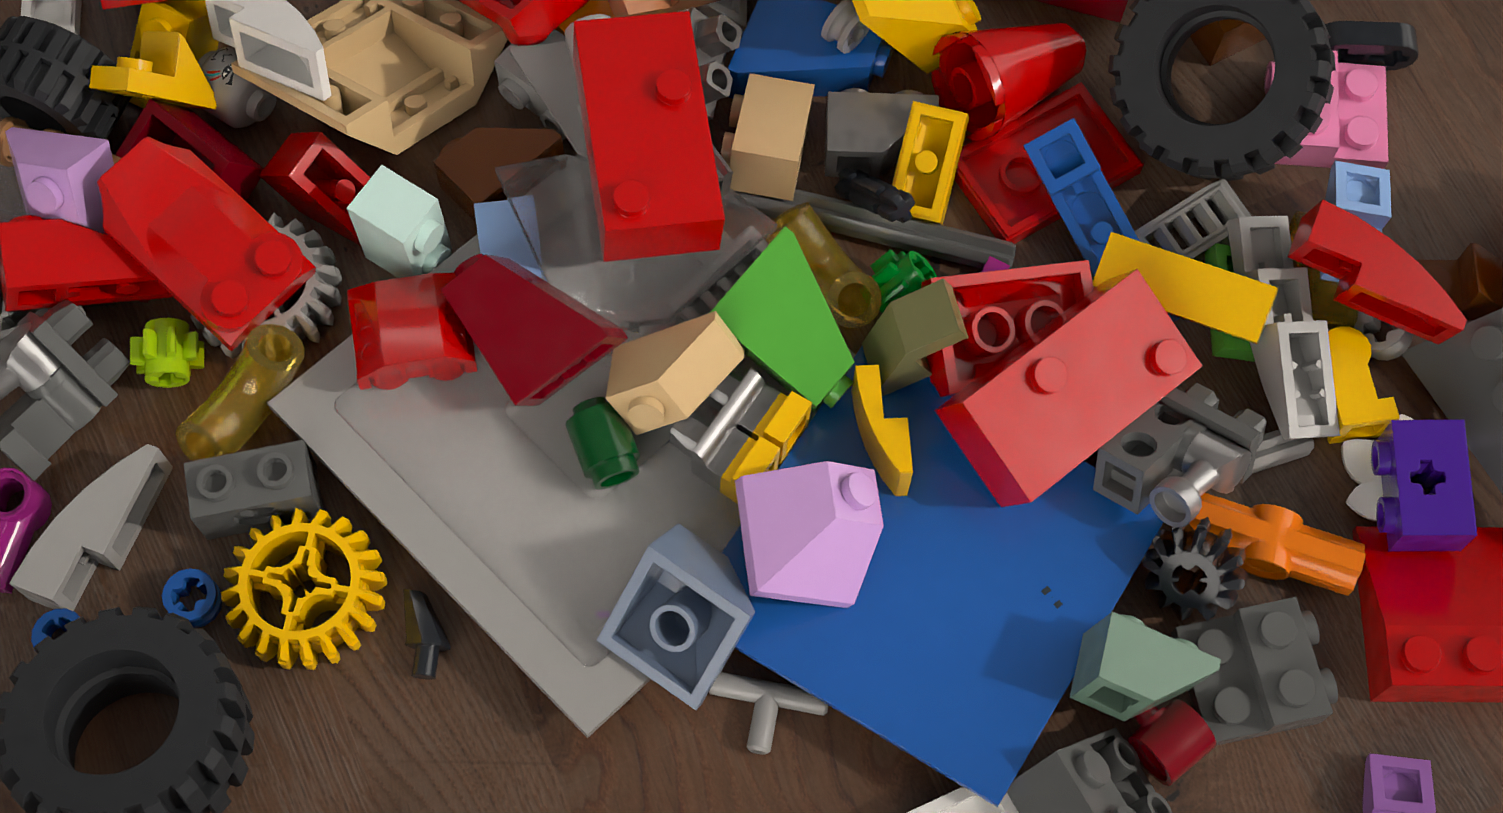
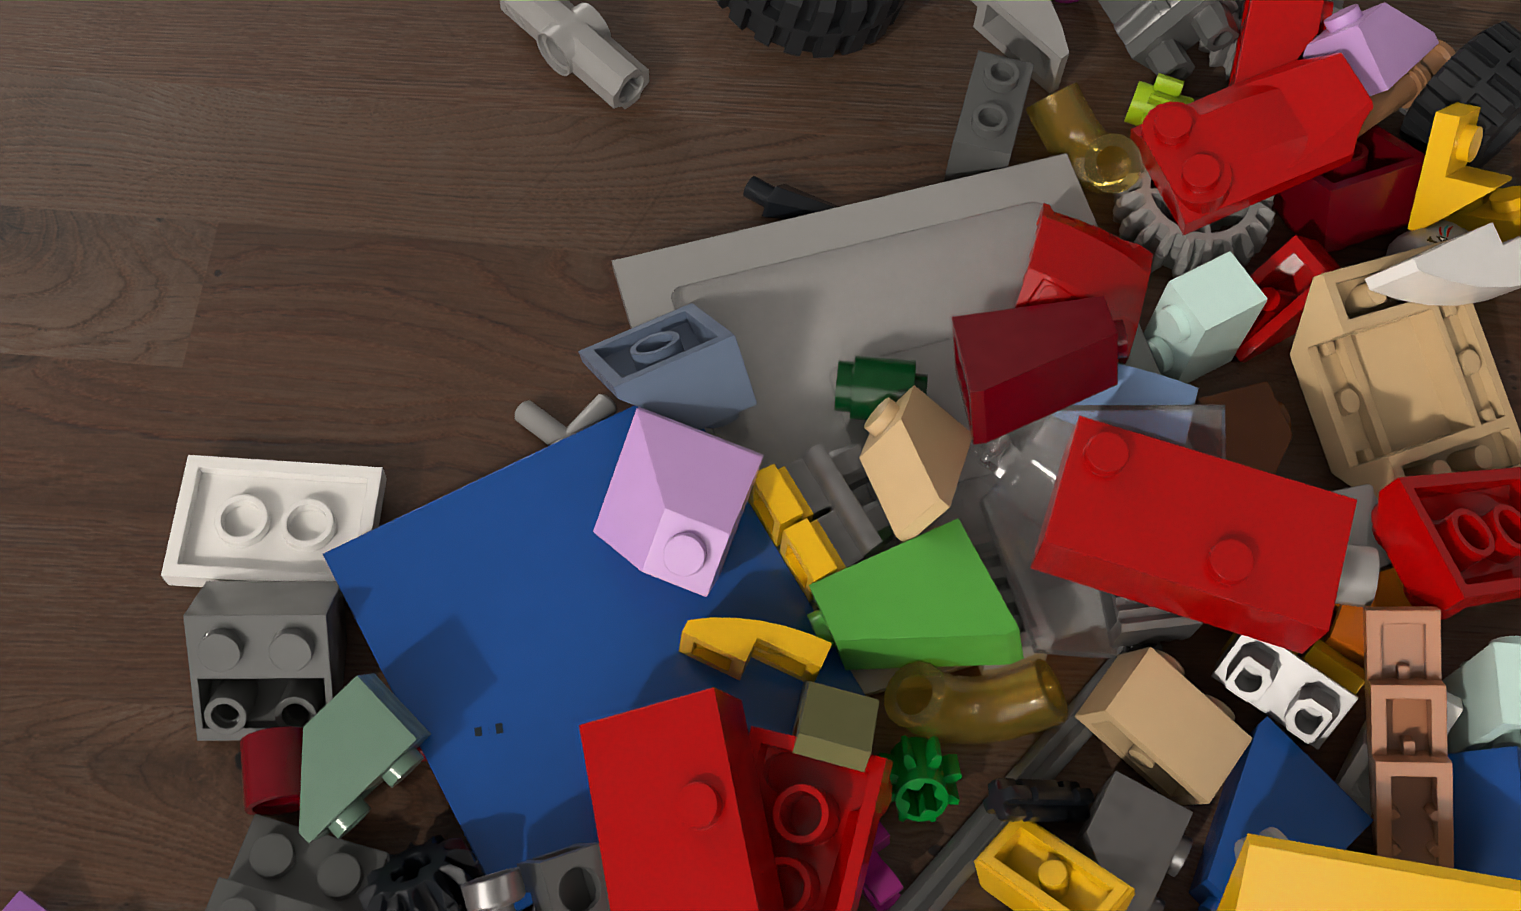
camera: 115 degrees right, 5 degrees down
(180, 586) = (918, 42): blue bush -> none
(260, 575) = (877, 113): yellow gear -> none

